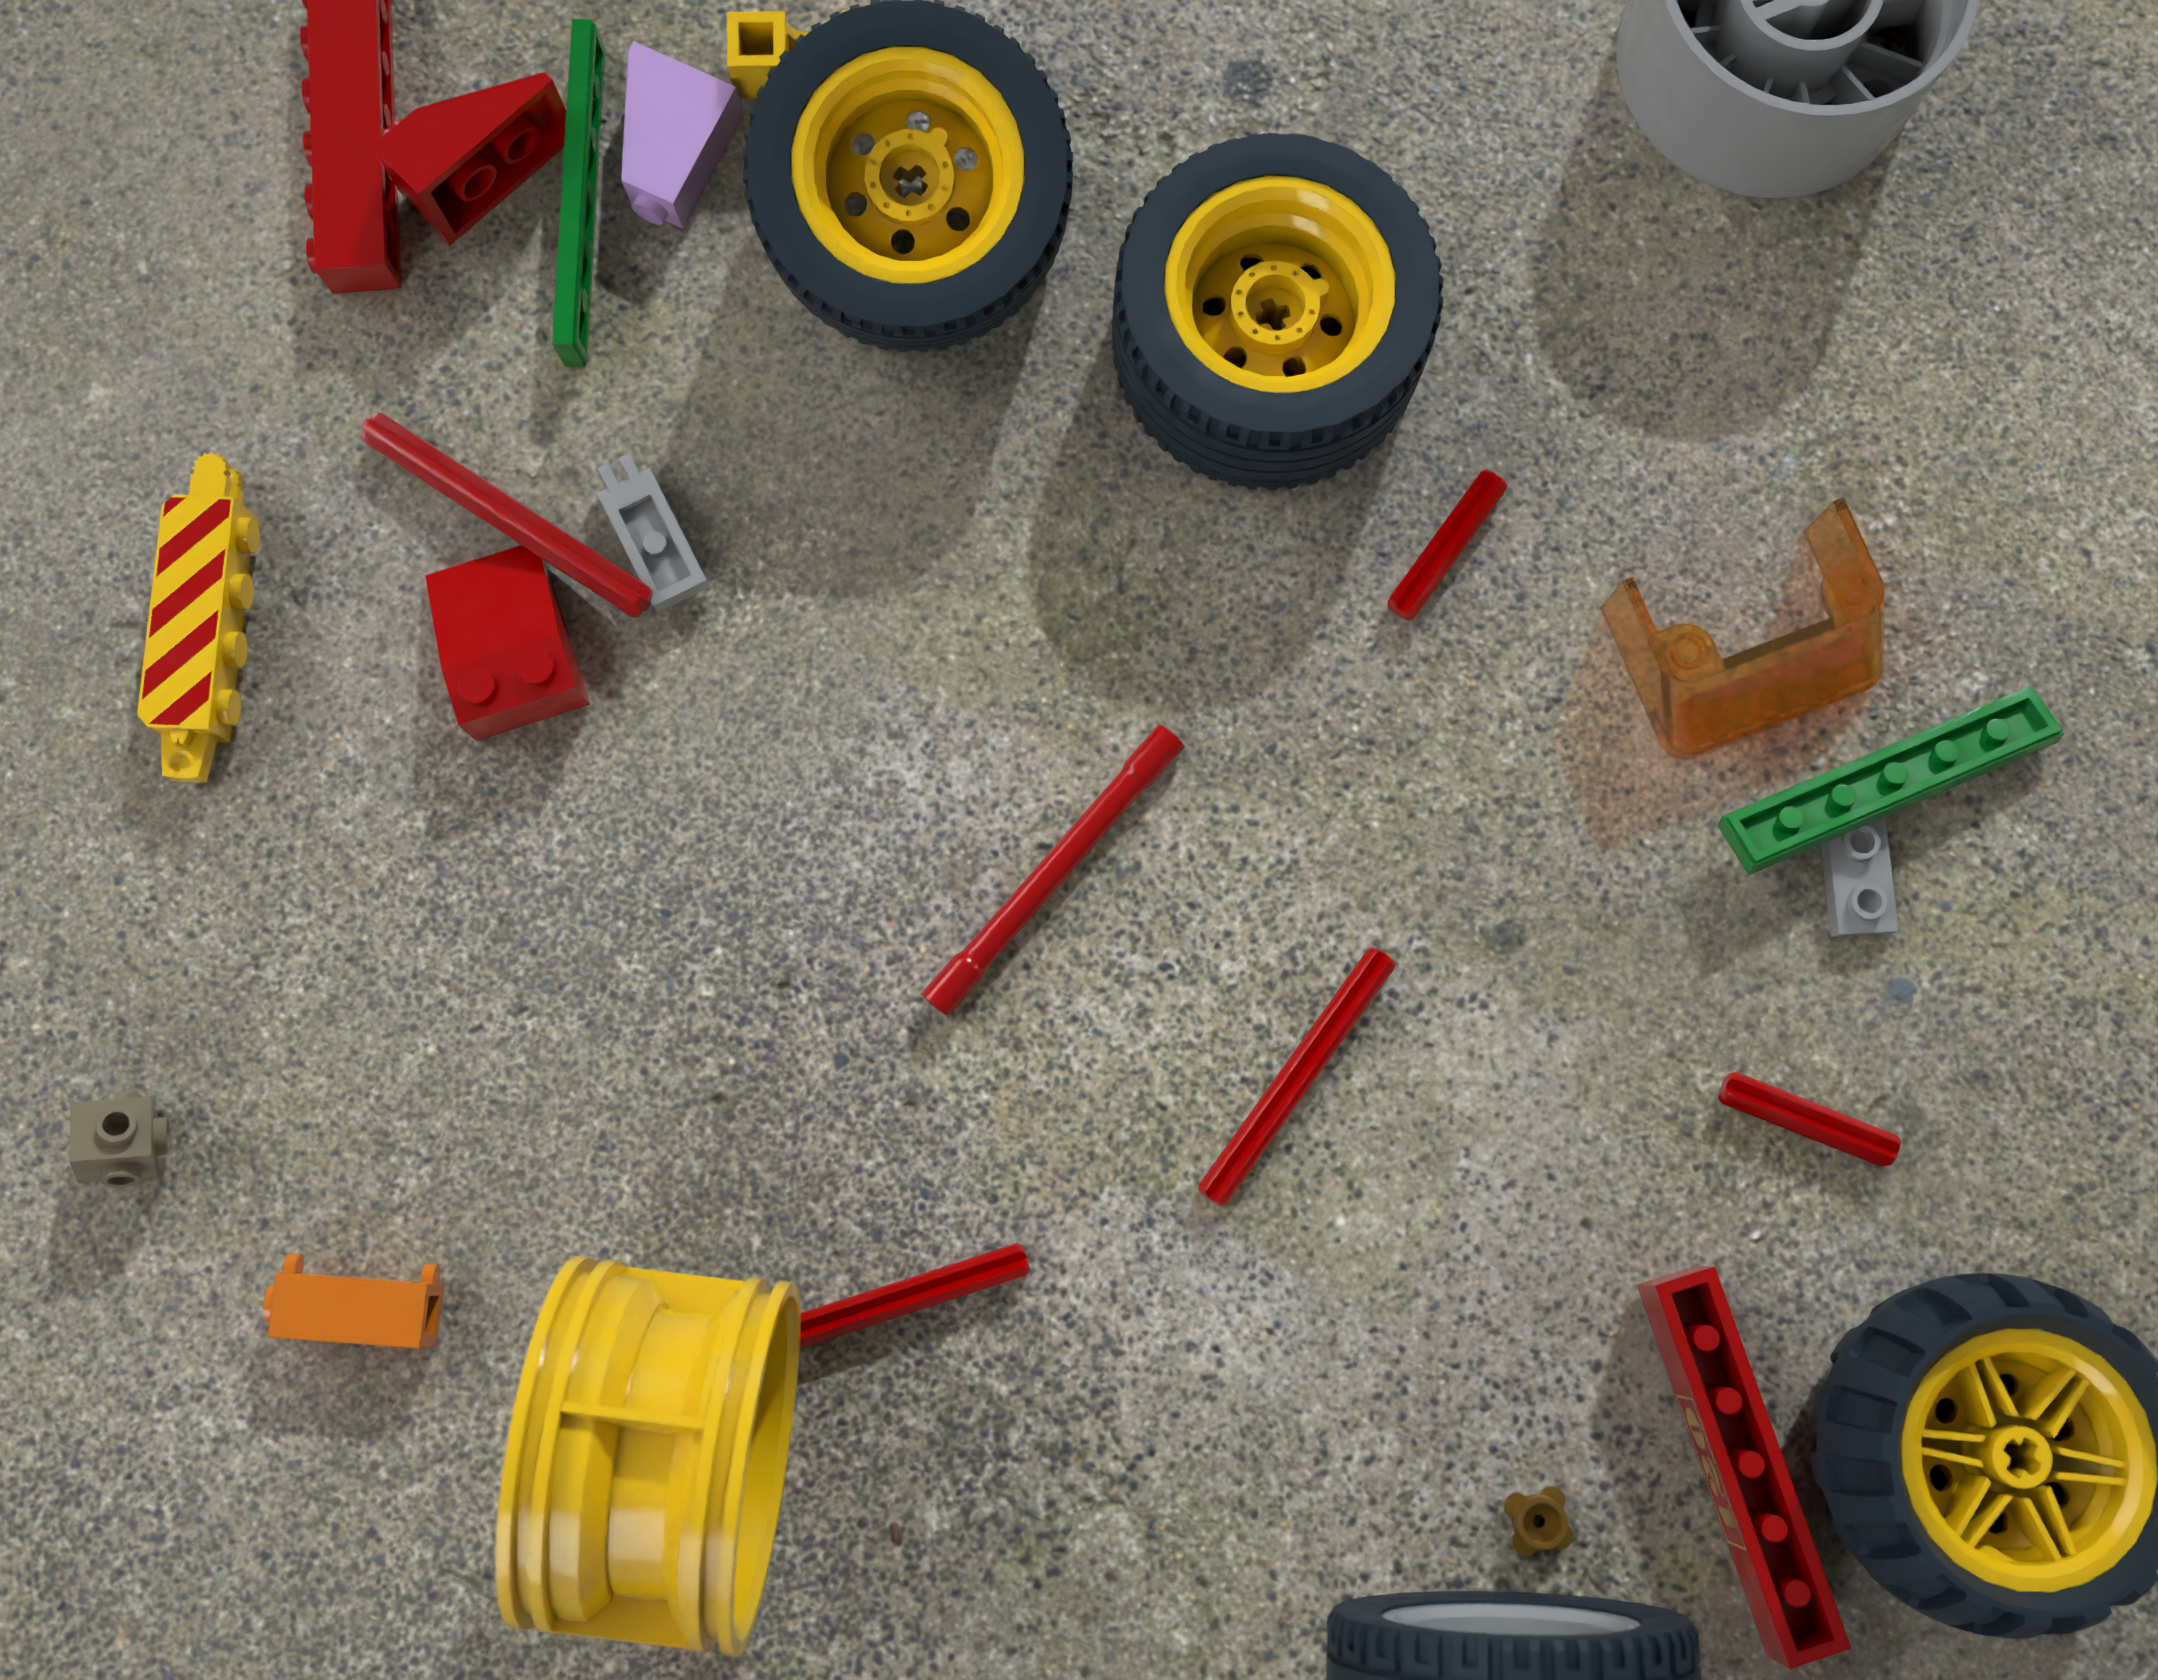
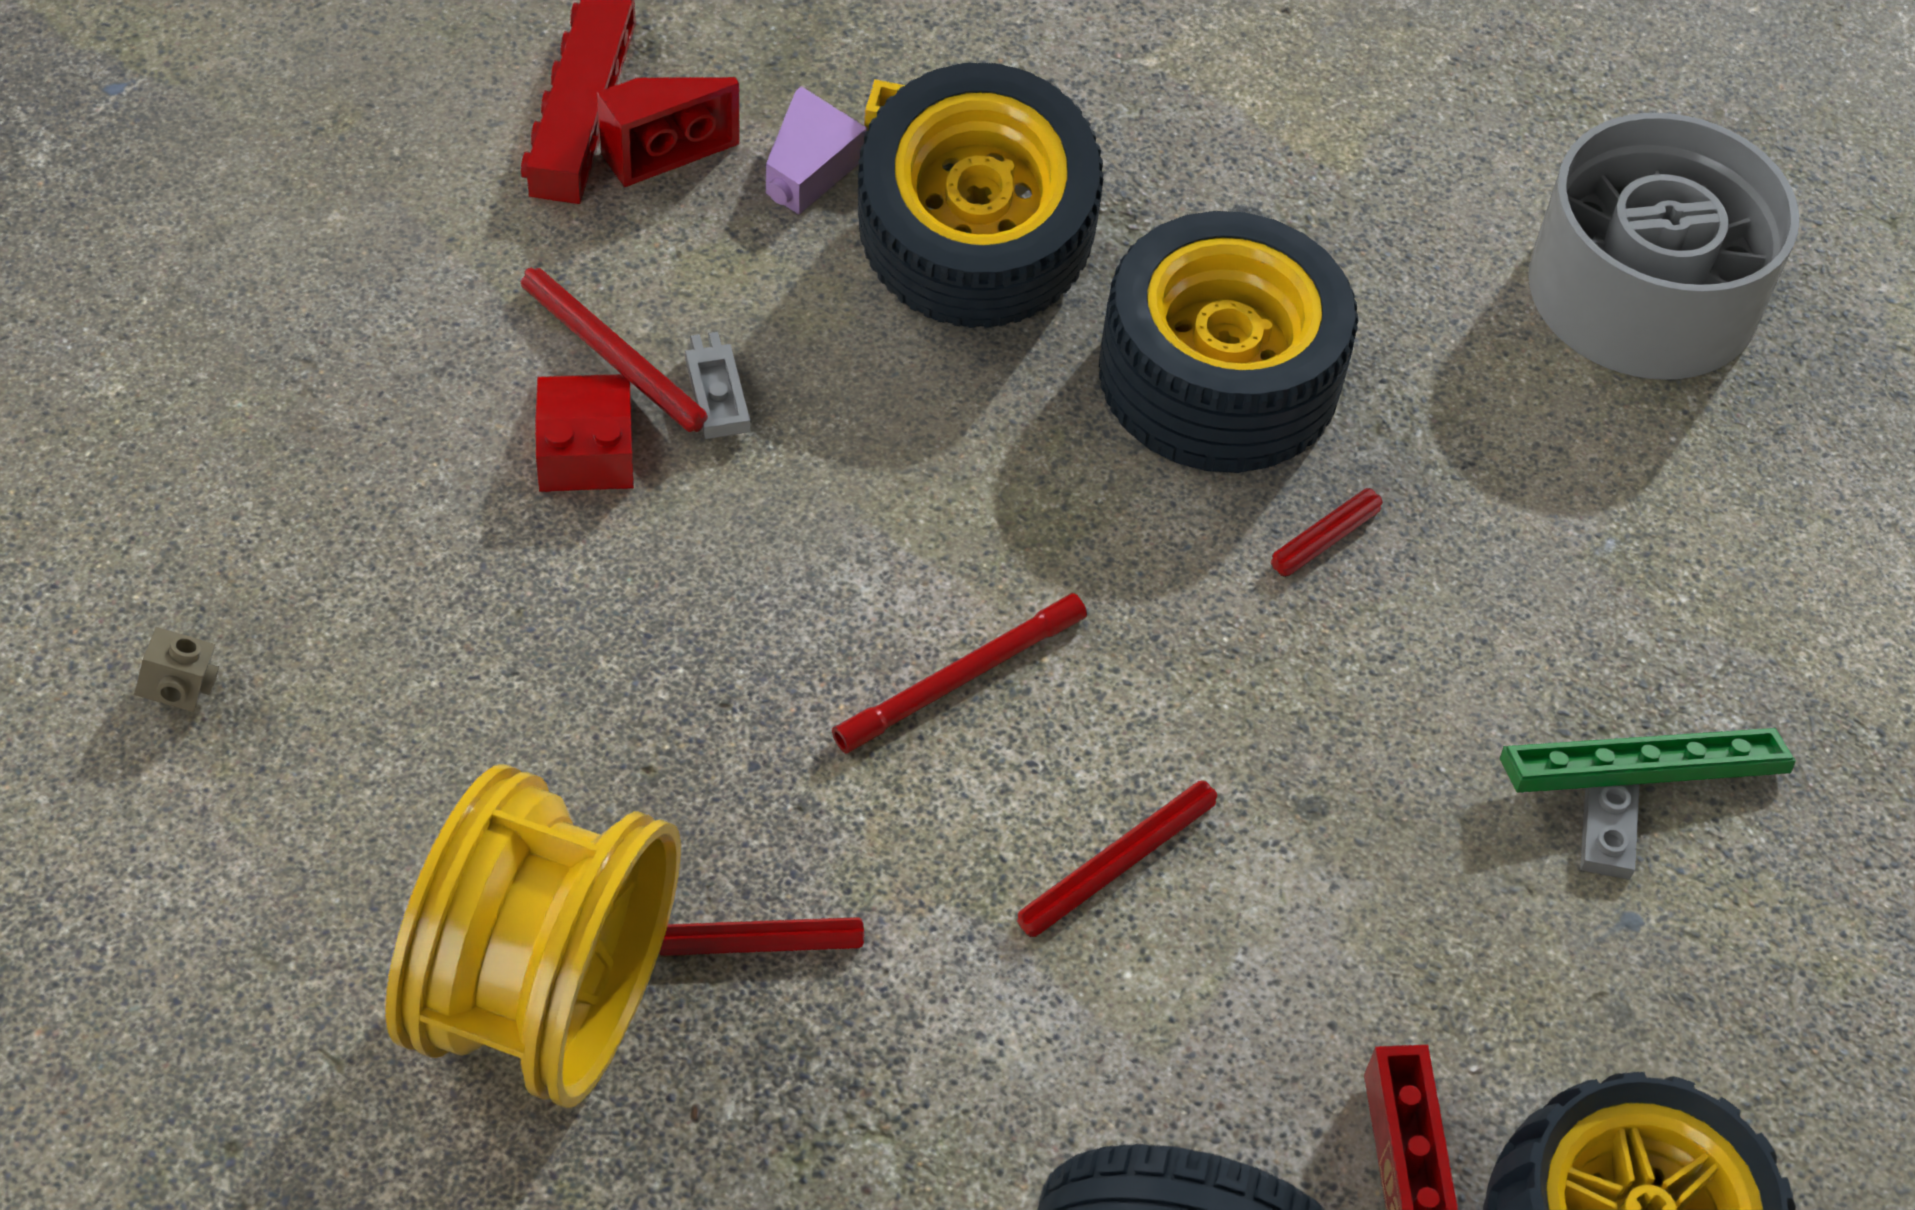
camera: 10 degrees right, 25 degrees down
(198, 619) = (360, 361): yellow hinge -> none
(354, 1307) = (317, 833): orange brick -> none
(579, 194) = (730, 173): green tile -> none
(1713, 702) = (1555, 668): clear orange windscreen -> none
(1809, 1119) = (1535, 988): red axle -> none

